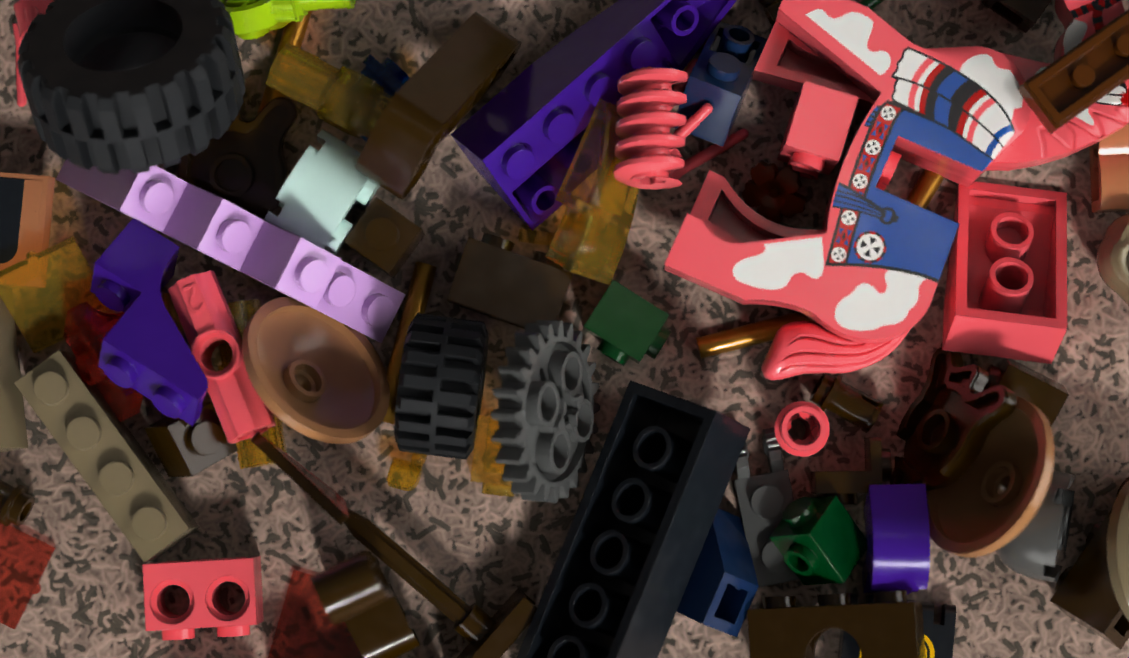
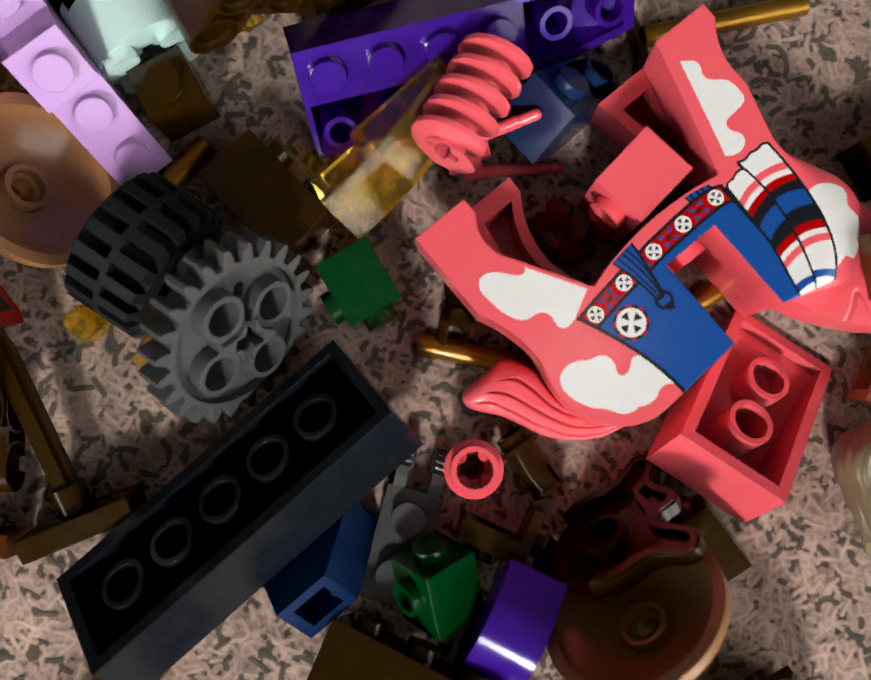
camera: 20 degrees right, 0 degrees up
(719, 308) = (453, 315): none -> dark brown hand

